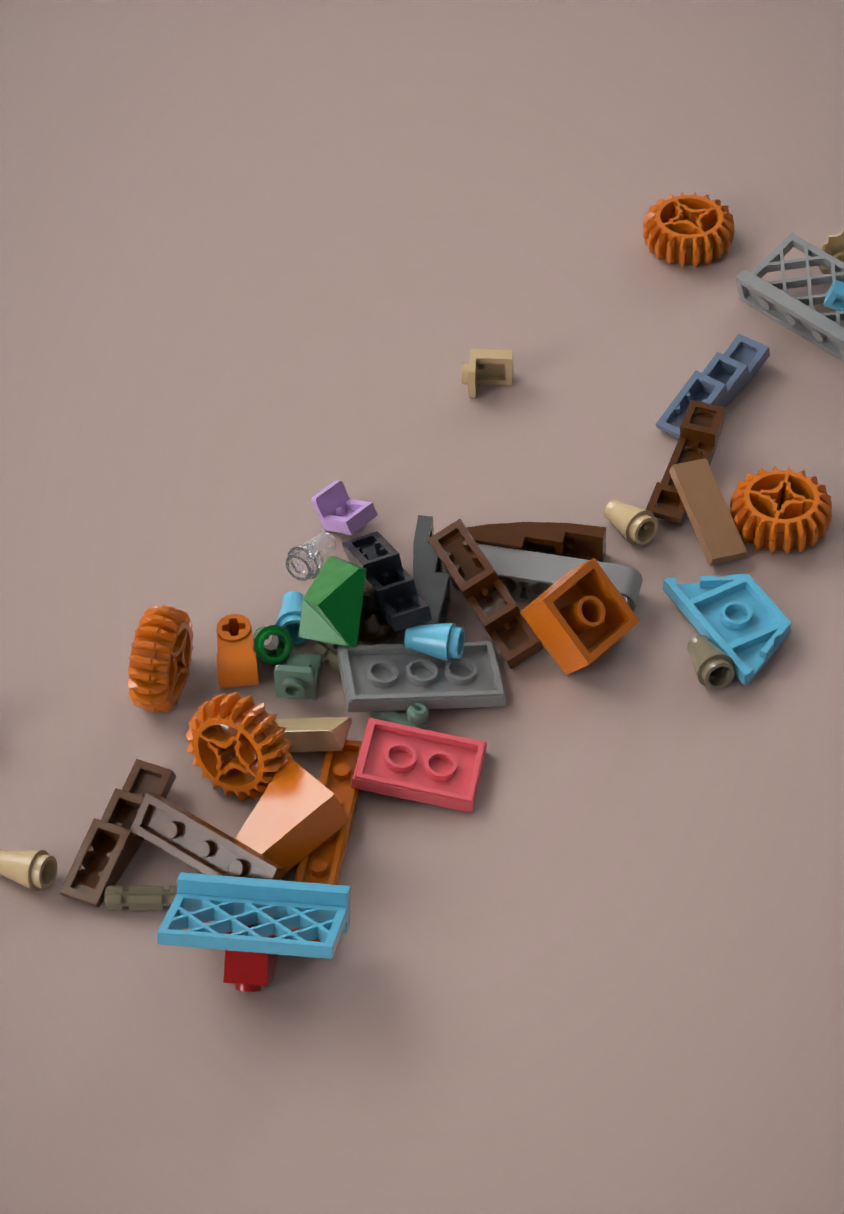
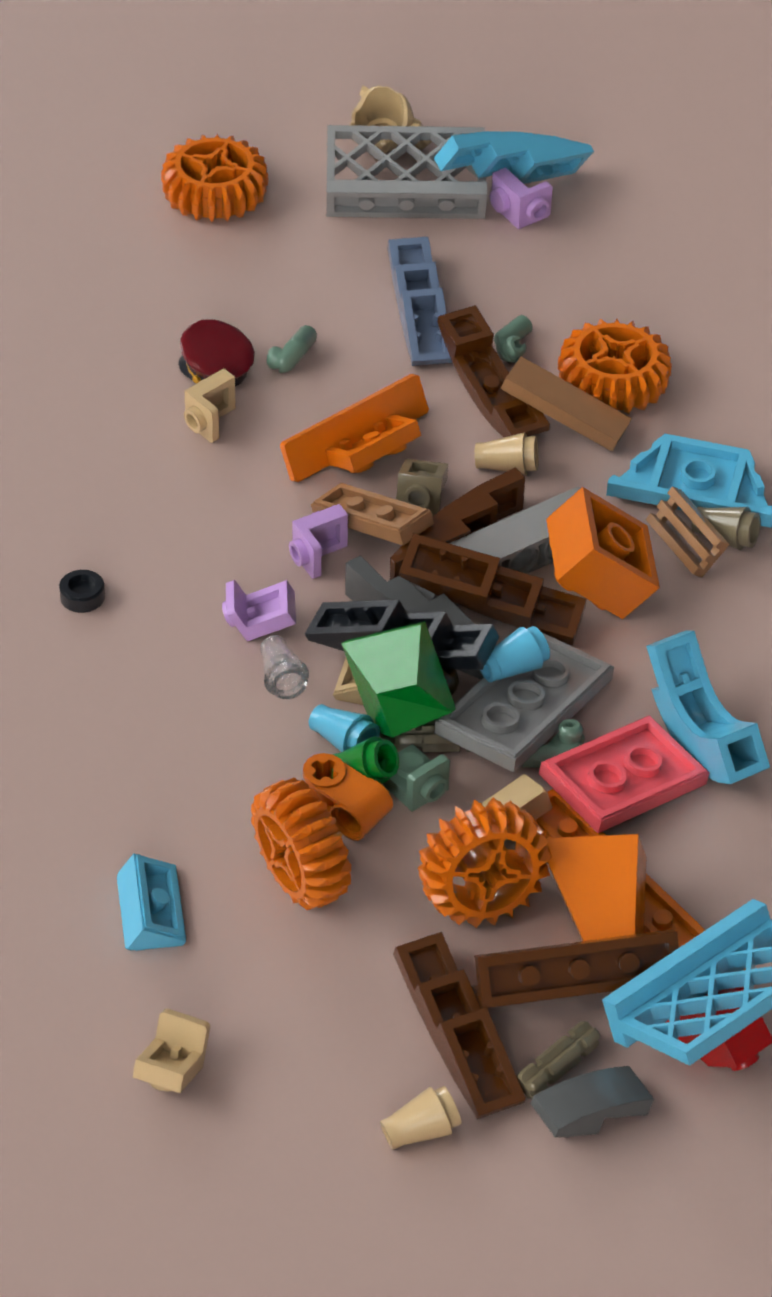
camera: 50 degrees left, 0 degrees up
(63, 639) = (150, 904): none -> medium azure slope
(114, 929) = (584, 1101): none -> dark grey slope
(270, 435) = (82, 591): none -> black tile
(437, 491) = (317, 536): none -> lavender bracket
(484, 498) = (377, 513): none -> medium nougat tile
(503, 780) = (696, 716): none -> medium azure arch
(535, 340) = (215, 345): none -> dark red piece
(546, 500) = (422, 483): none -> dark tan bracket
(555, 444) = (360, 432): none -> orange bracket
(586, 369) = (293, 351): none -> sand green arm
(674, 647) = (667, 512): none -> medium nougat tile
(740, 449) = (508, 339): none -> sand green arm

